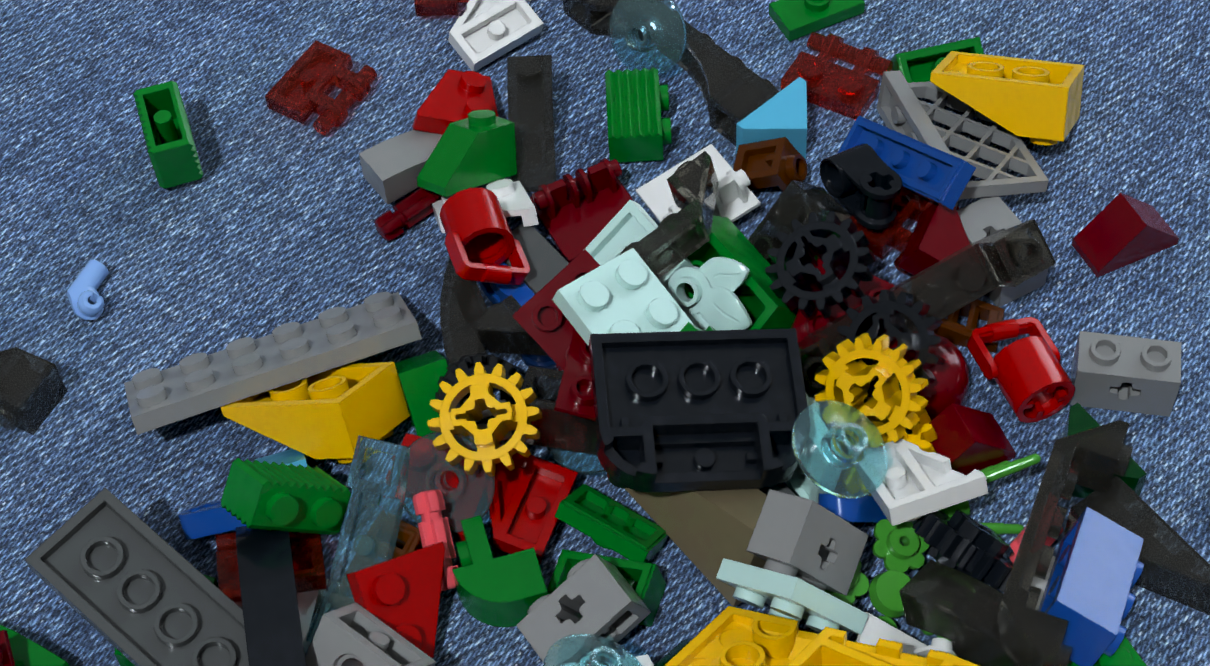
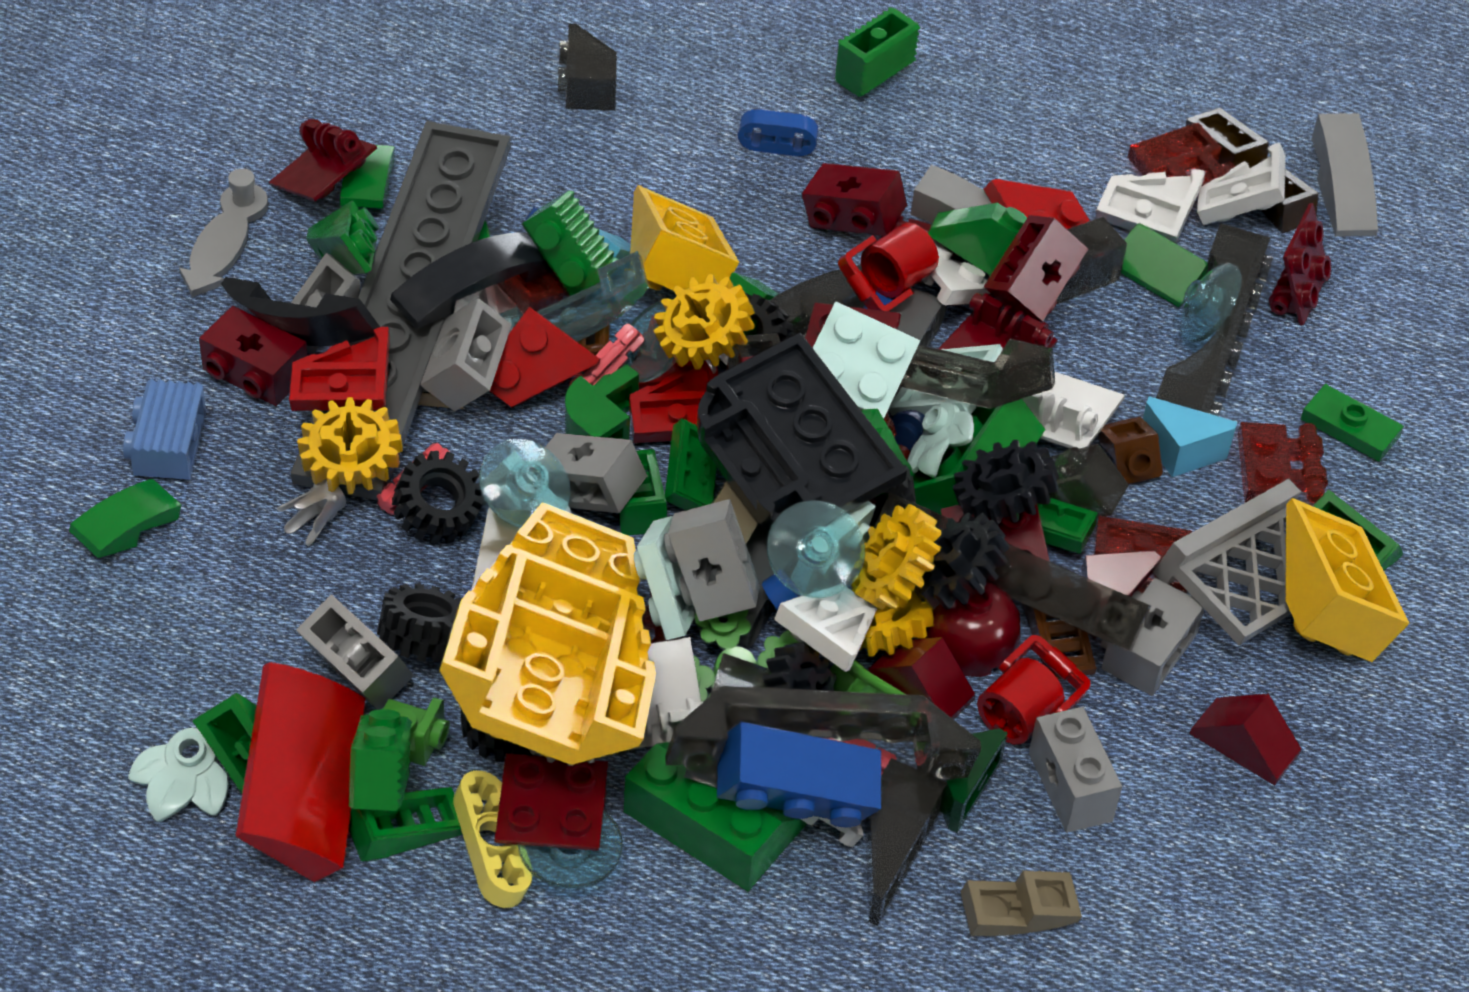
camera: 55 degrees right, 5 degrees down
(83, 291) = (703, 77): light blue arm -> none
(209, 262) = (778, 132): none -> blue beam
(269, 362) = (704, 201): light grey plate -> none
(312, 79) = (1001, 118): clear red plate -> none
(351, 236) = (854, 199): none -> dark red brick
(546, 131) = (1036, 267): none -> brick
(574, 47) = (1161, 264): none -> green slope
(634, 115) = (1119, 334): green brick -> none
(863, 185) = (1141, 505): black piece -> none
(920, 166) = (1182, 519): blue tile -> none

